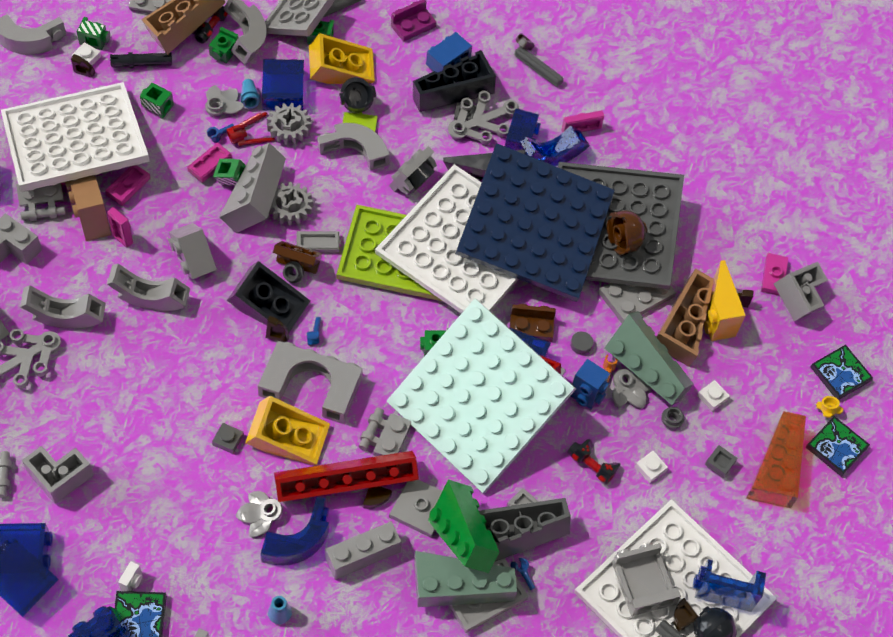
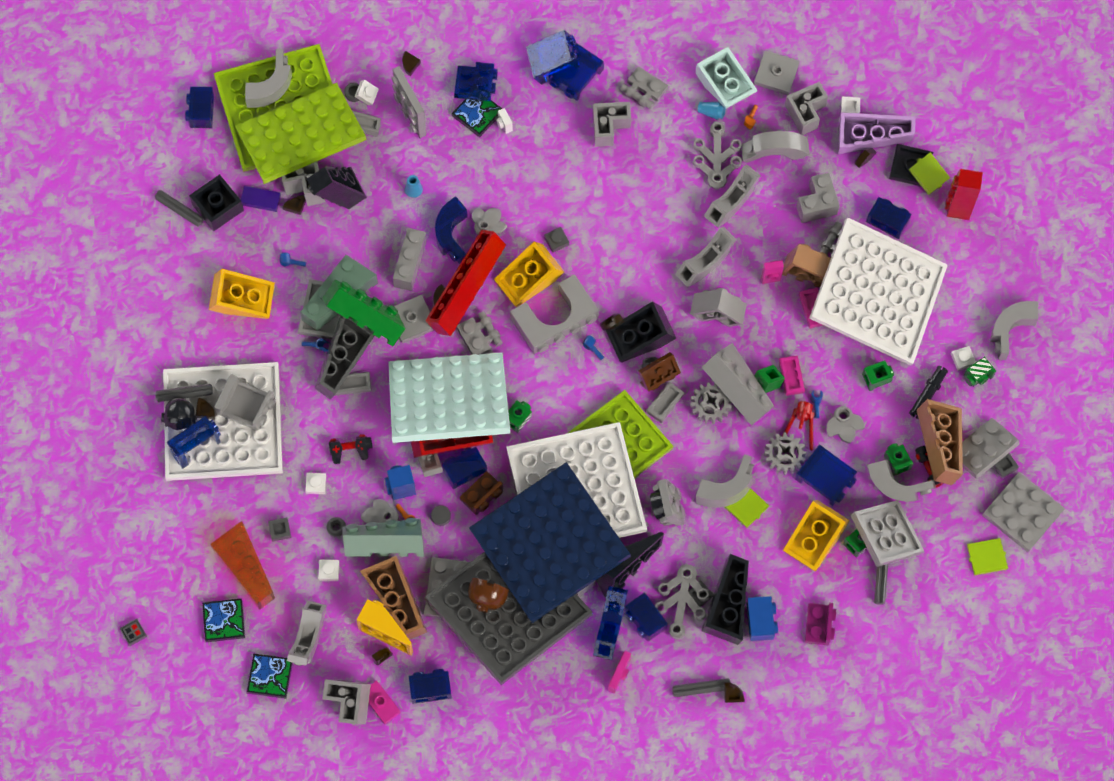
camera: 135 degrees right, 10 degrees up
(82, 66) = (955, 344): dark brown tile -> none
(249, 94) = (836, 446): dark azure cone -> none
(357, 95) = (772, 517): black cap -> none
(728, 243) = (430, 686): none -> clear blue brick
(785, 364) = (308, 634): none -> light grey arch
(829, 406) = (253, 634): yellow plate -> none

